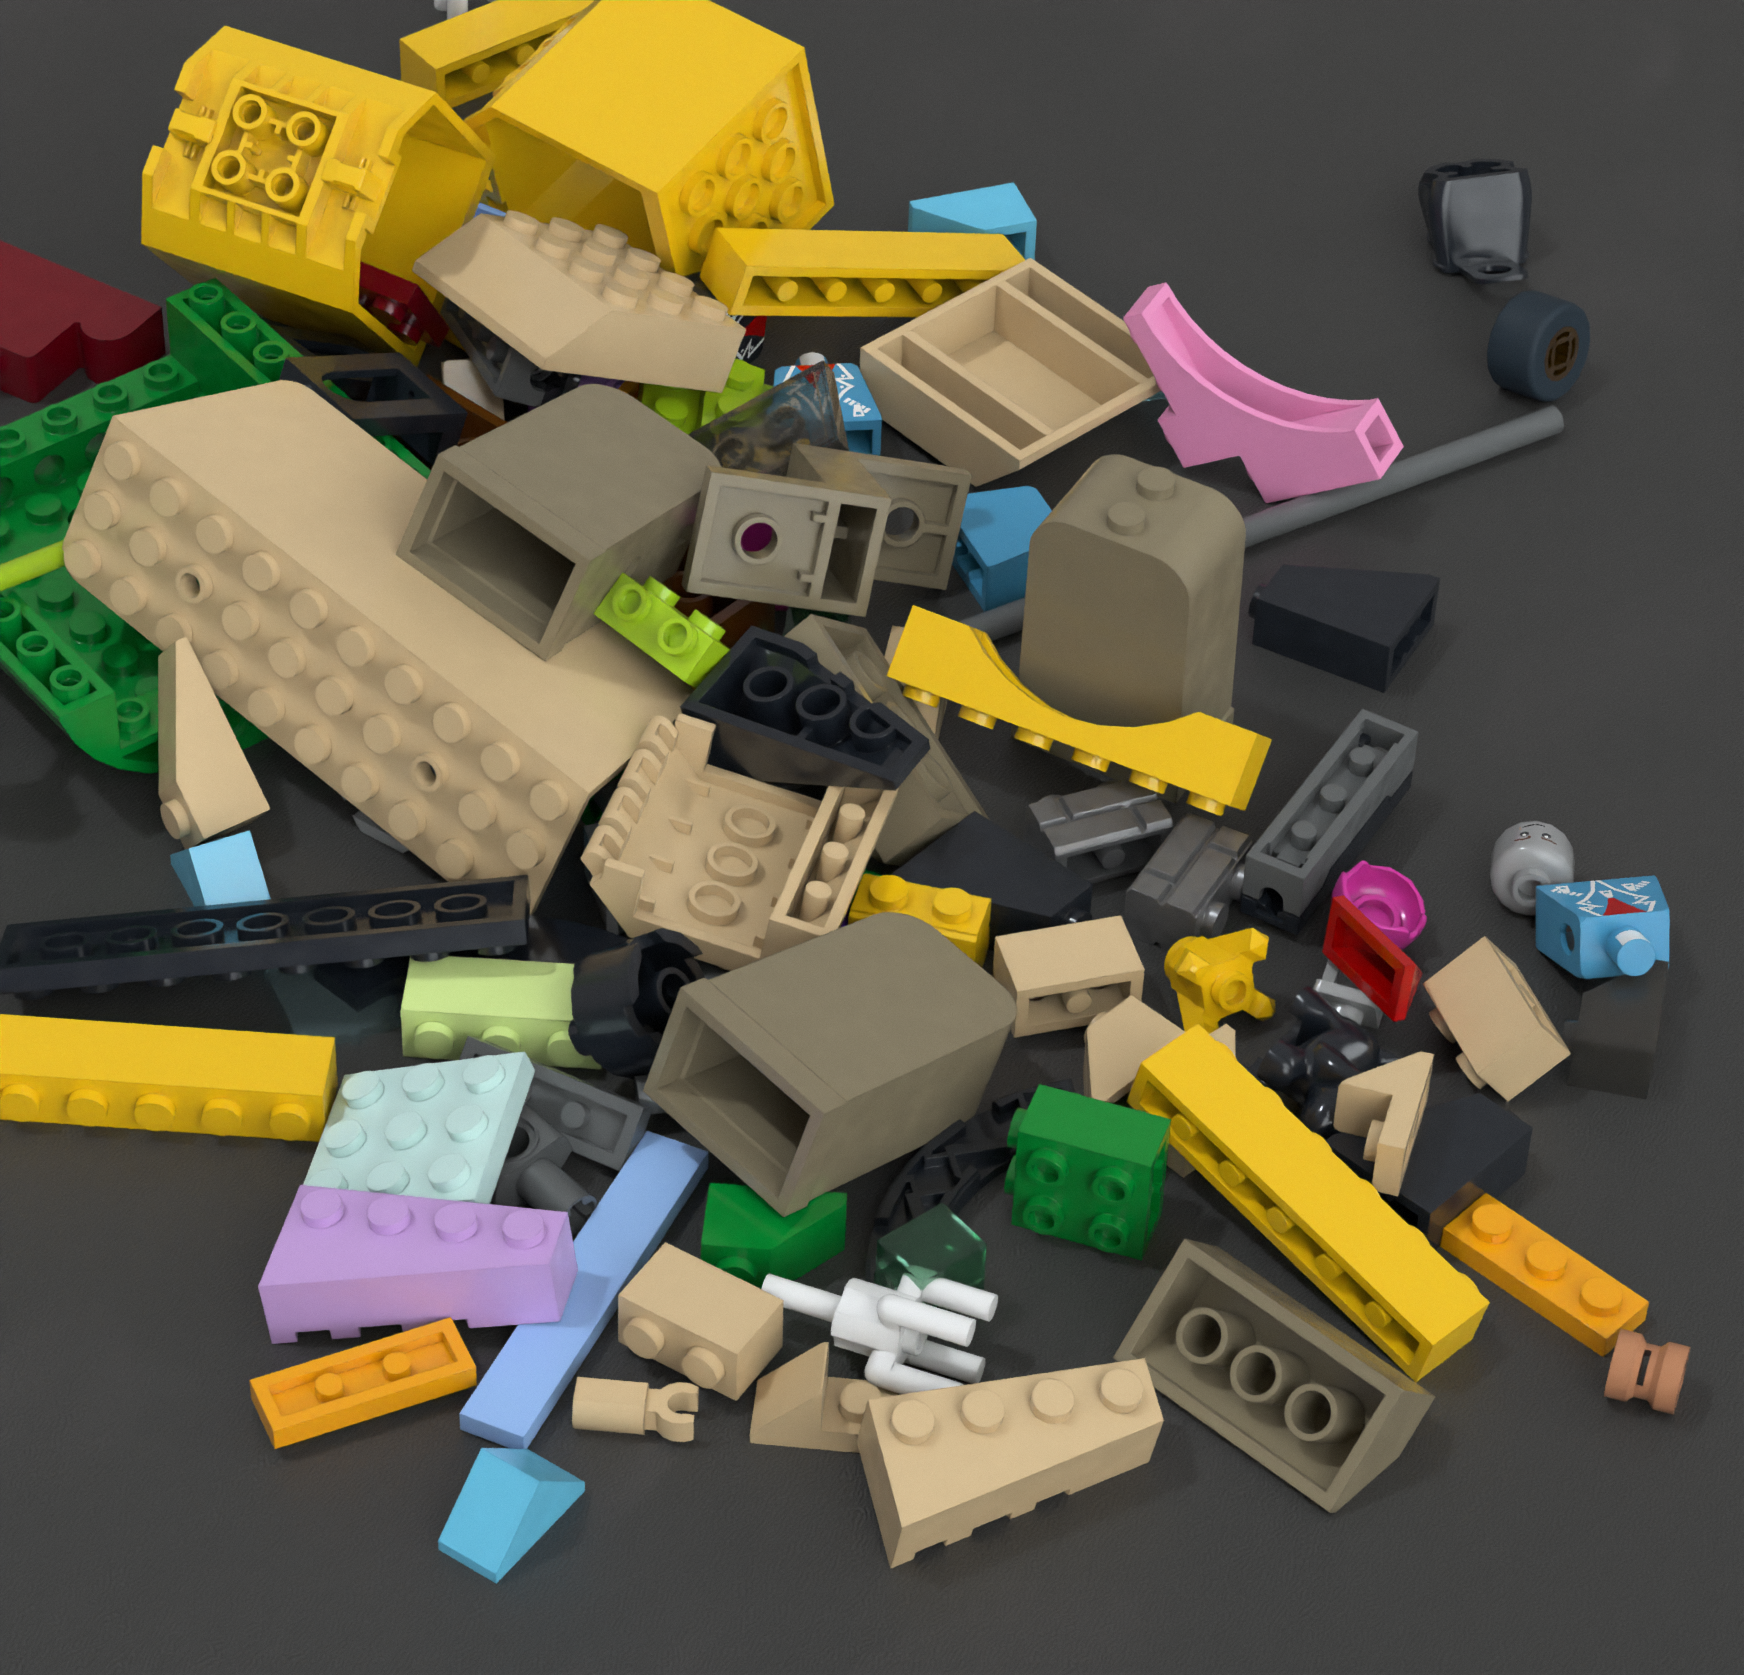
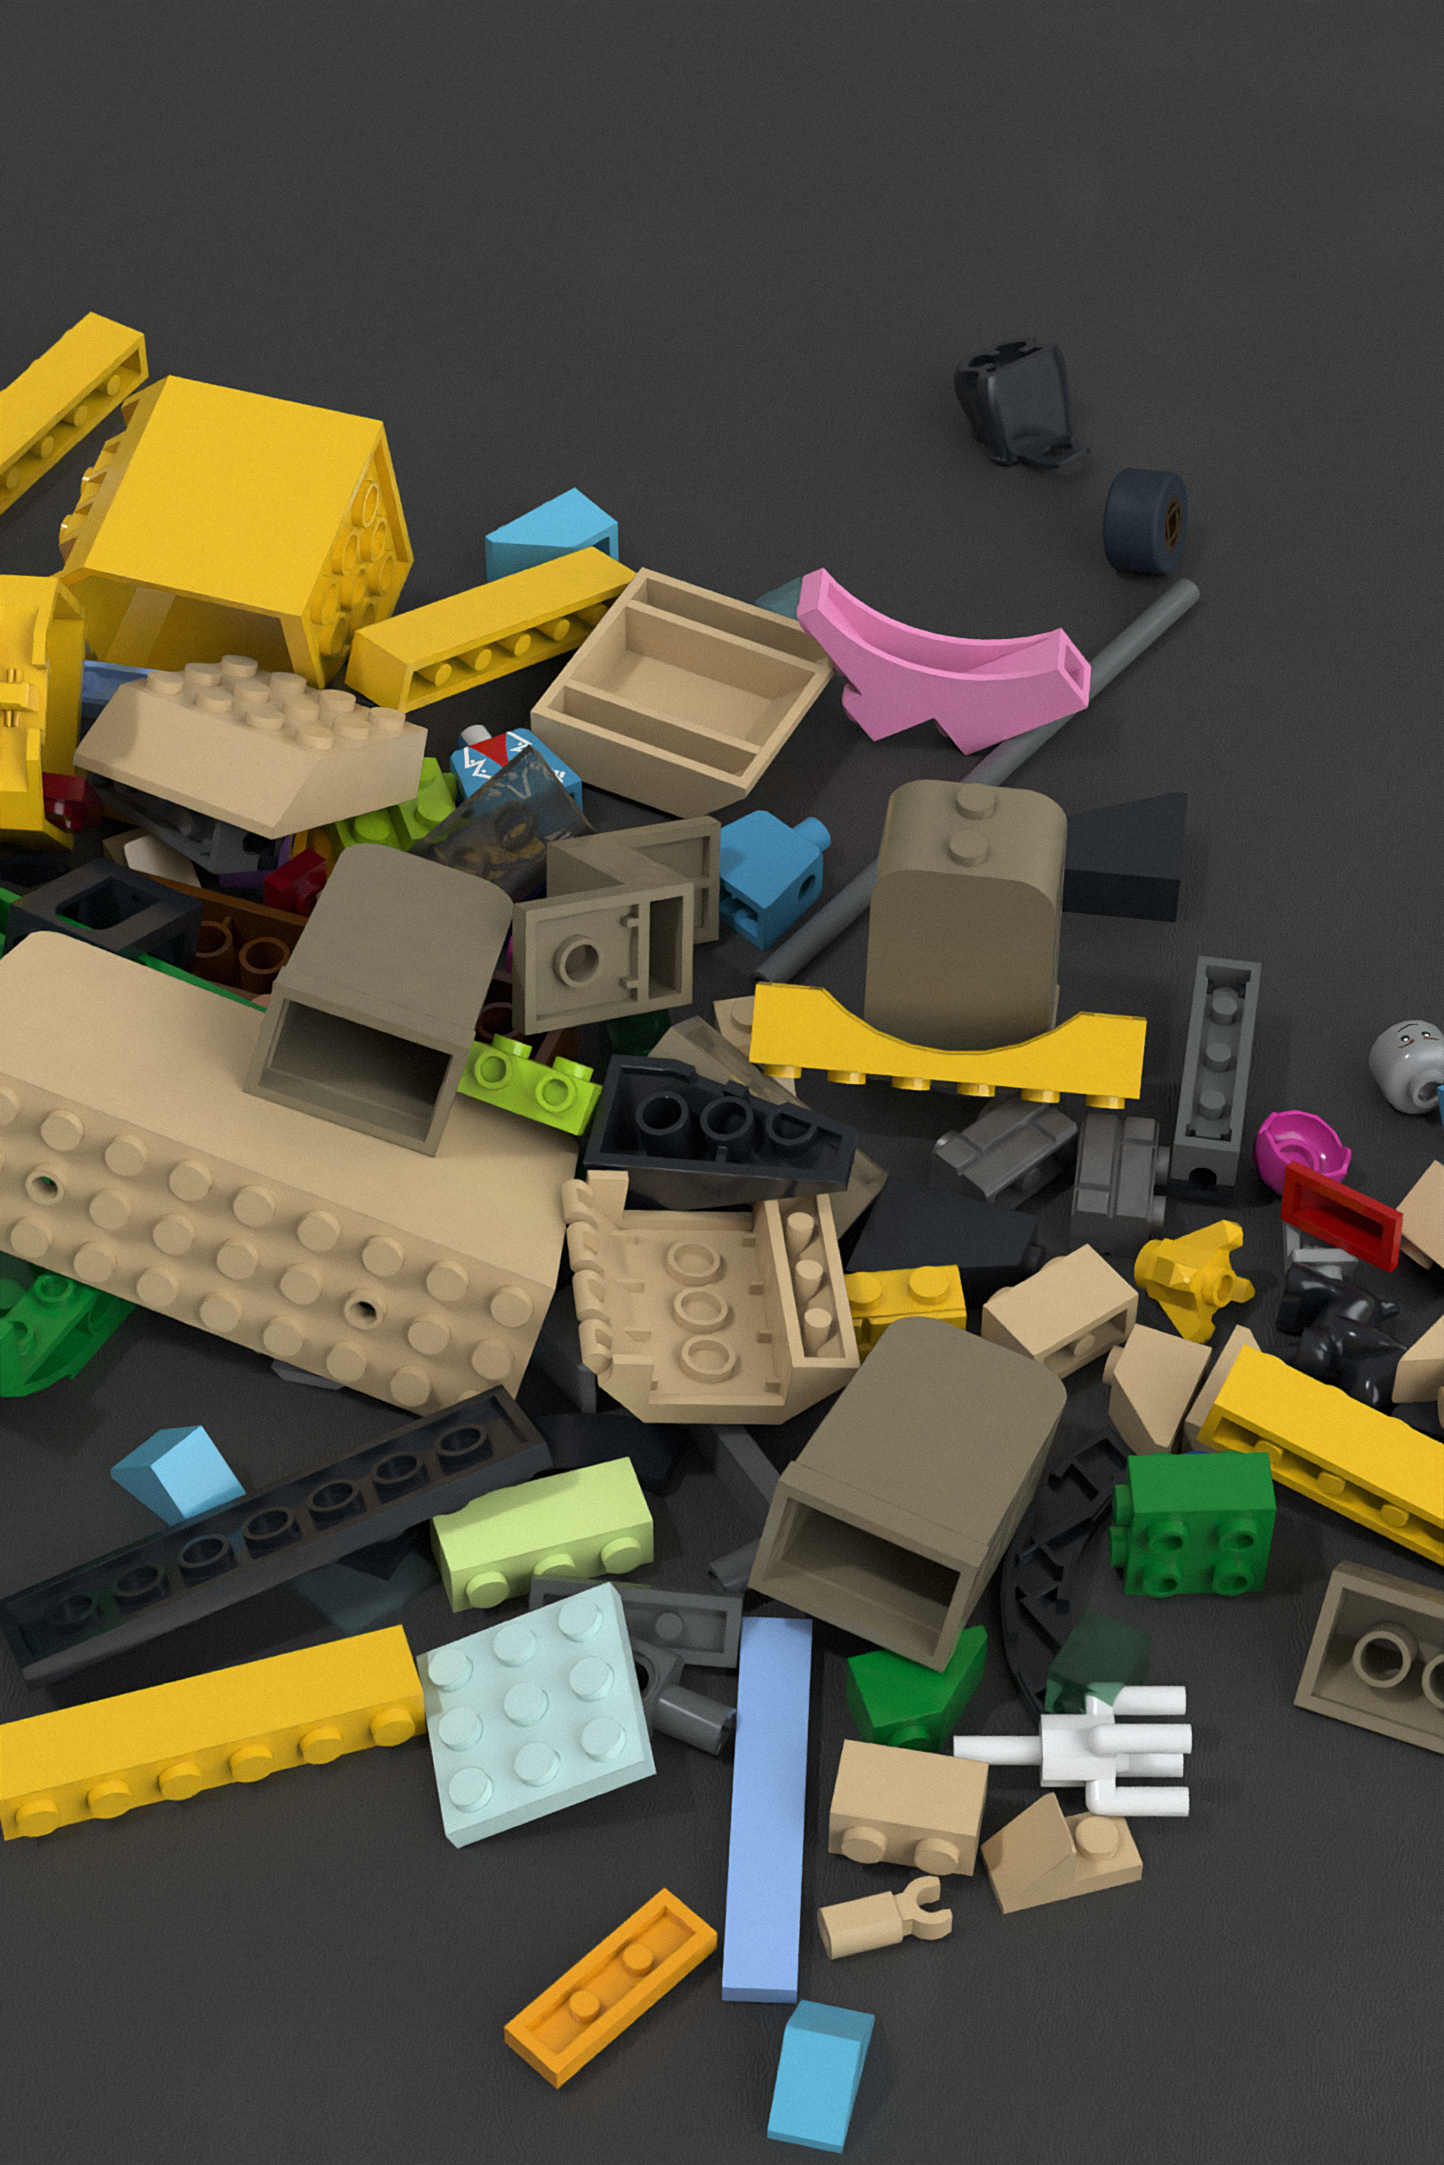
camera: 20 degrees left, 5 degrees up
(200, 764) = (107, 1361): tan slope -> none
(413, 1262) = (603, 1844): lavender wedge -> none
(627, 996) = (694, 1491): black brick -> none
(999, 1447) = (1245, 1852): tan wedge -> none

